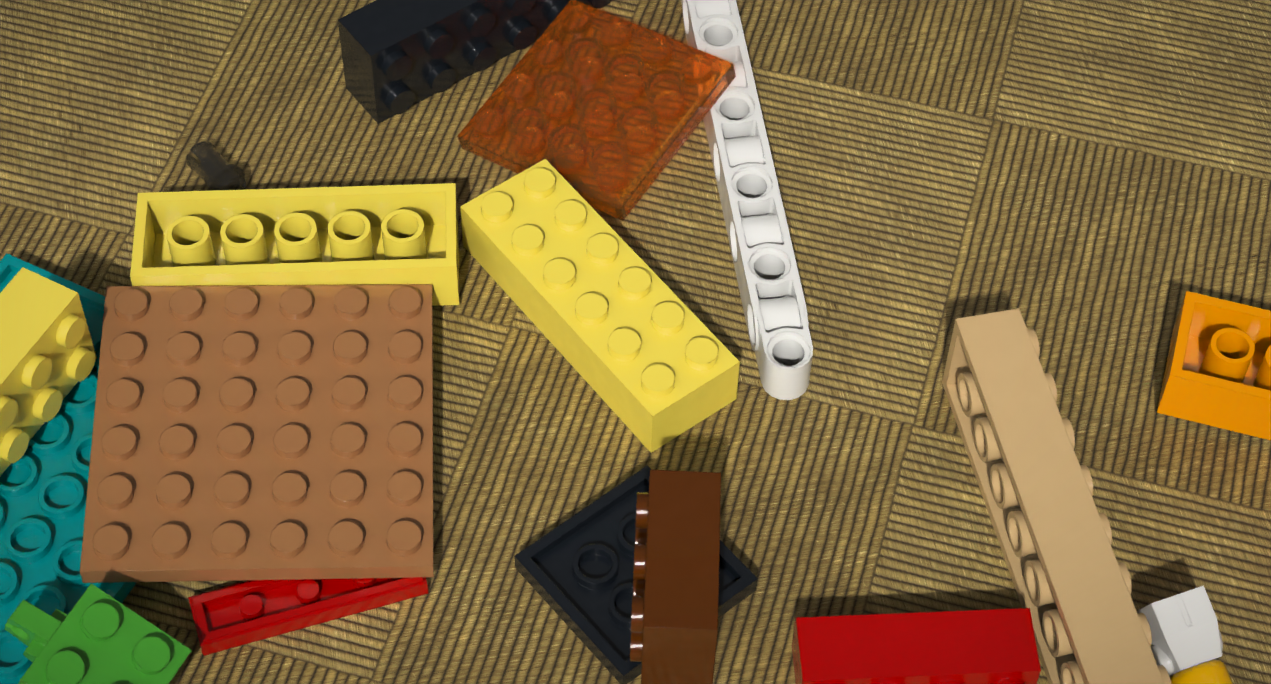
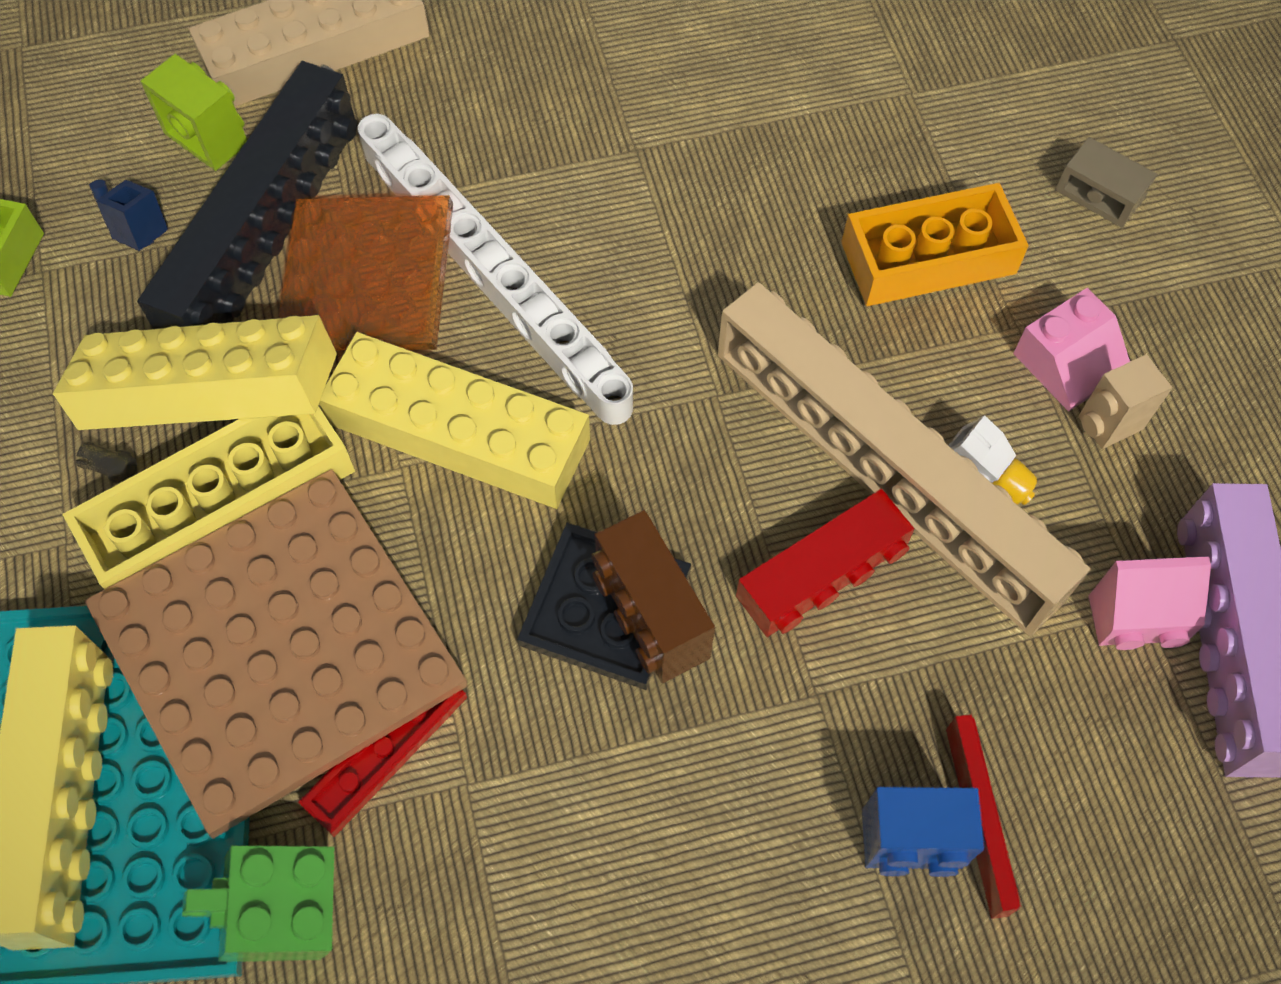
camera: 30 degrees left, 10 degrees up
(357, 122) = (197, 373): none -> light yellow brick

